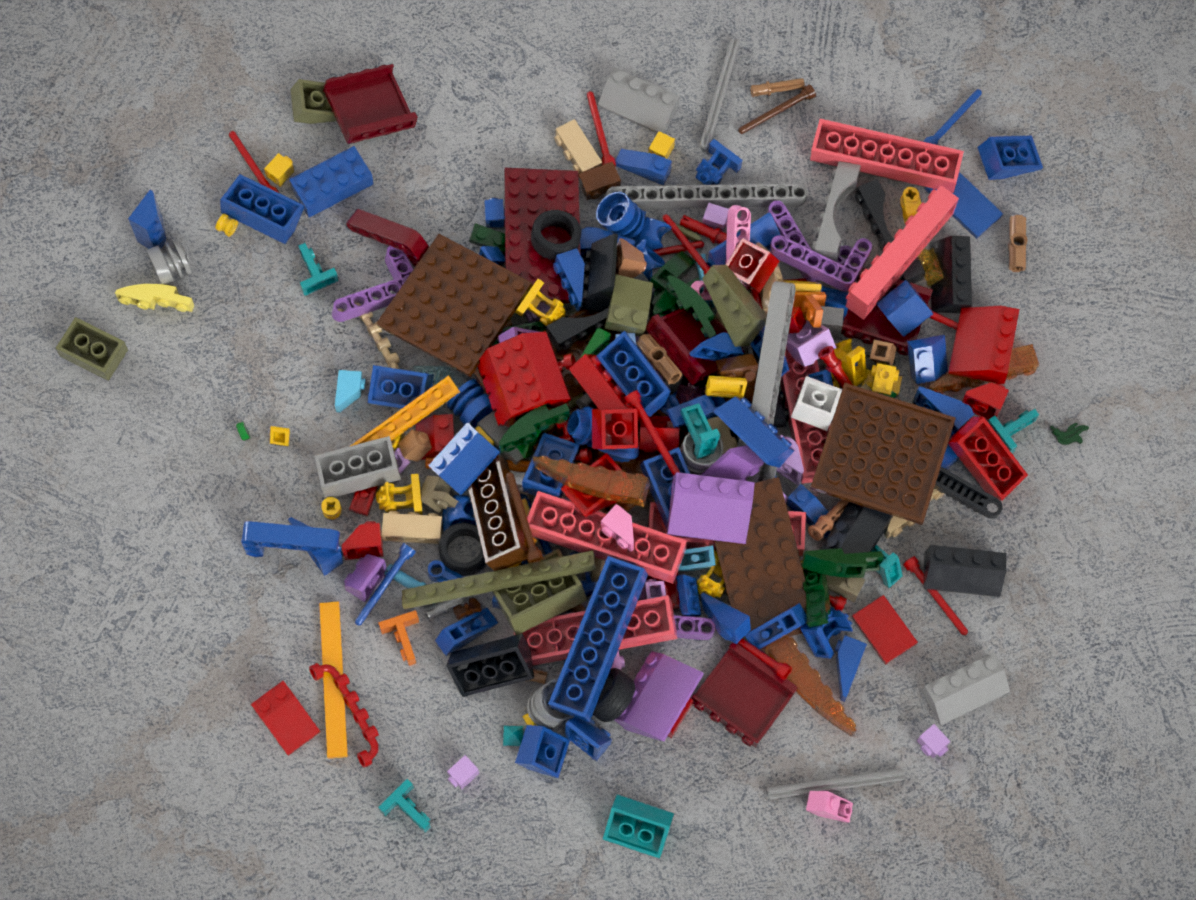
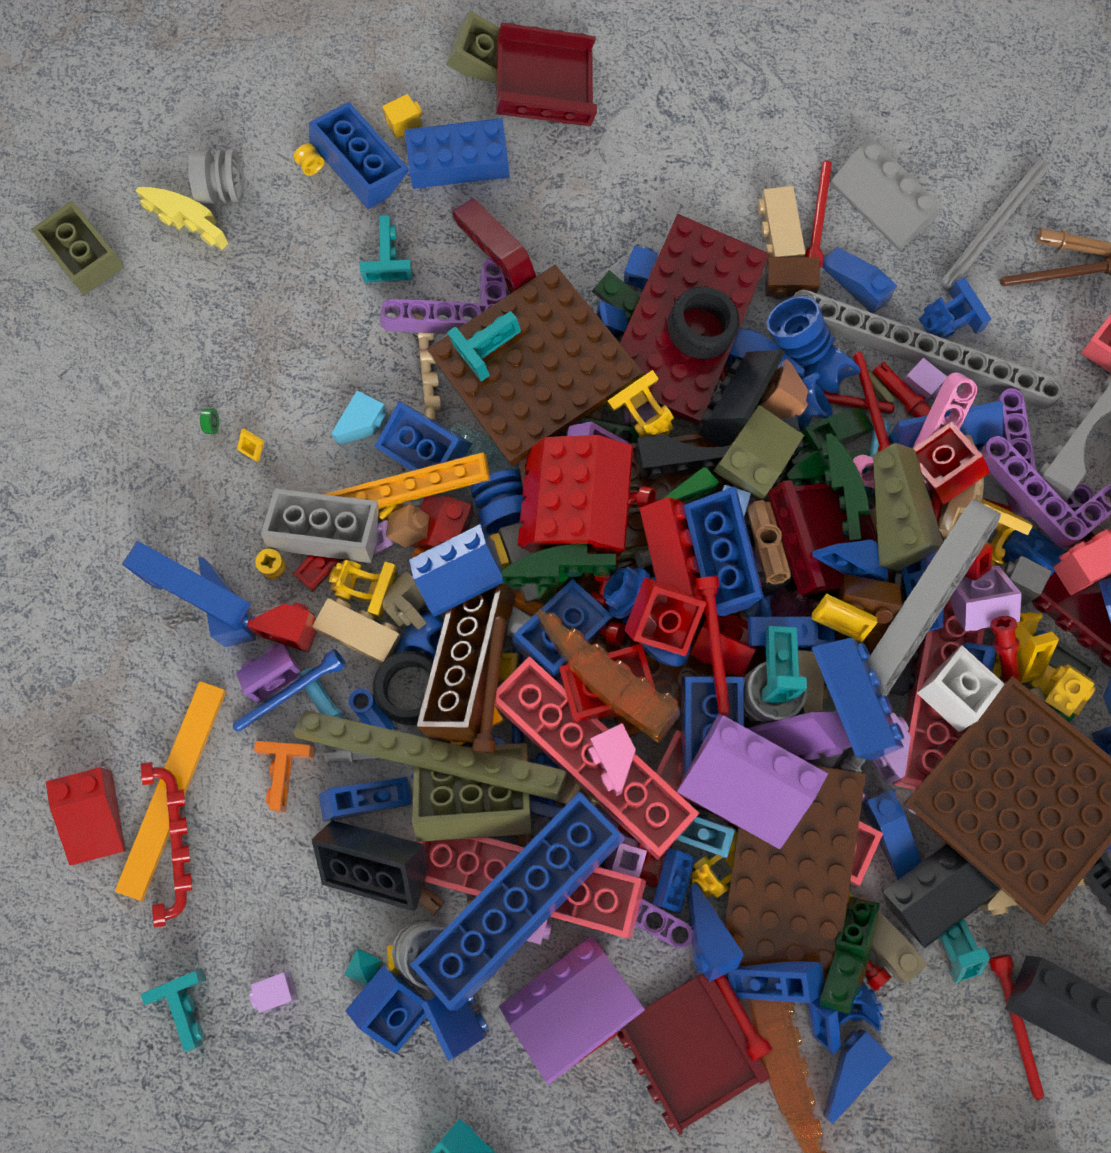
camera: 30 degrees right, 5 degrees up
(148, 222) = (212, 115): blue slope -> none
(249, 160) = (373, 95): red piece -> none
(416, 304) = (484, 342): none -> teal bracket
(461, 611) = (376, 770): reddish brown piece -> none
(571, 270) = (703, 374): blue slope -> none
(615, 696) = (514, 983): black tyre -> none
(662, 145) = (893, 261): yellow brick -> none
(811, 306) = (1007, 552): orange bracket -> none
(826, 522) = (906, 857): nougat pin -> none
(837, 564) = (898, 930): dark green slope -> none
(883, 352) = (1080, 652): medium nougat brick -> none
(884, 629) = (925, 1042): red tile -> none

